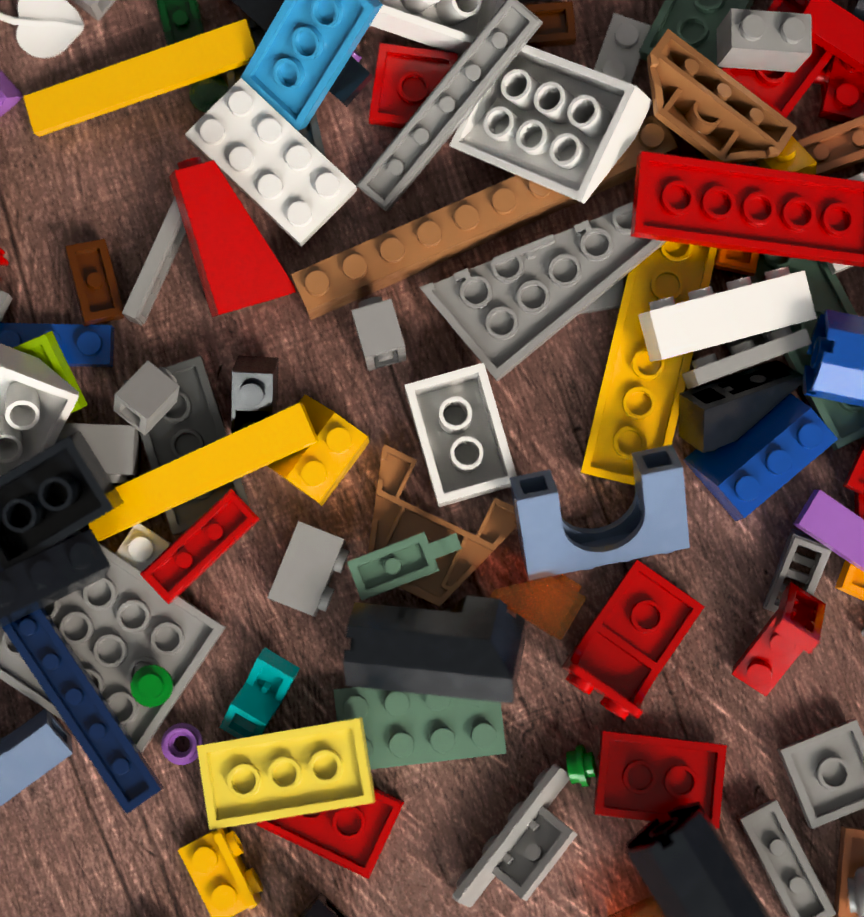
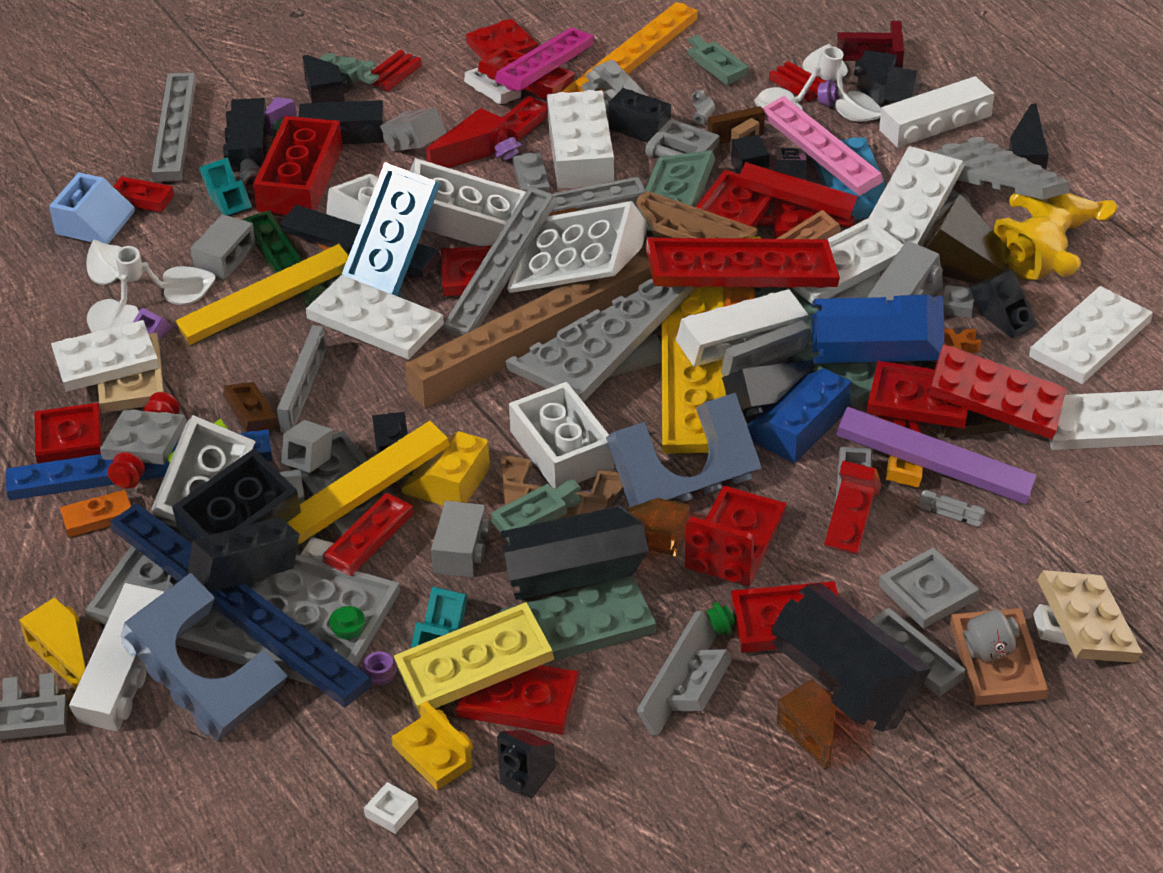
camera: 10 degrees left, 40 degrees down
(226, 245) = (351, 358): red slope -> none
(379, 333) = (482, 388): light grey brick -> none
(764, 40) = (717, 184): light grey brick -> none

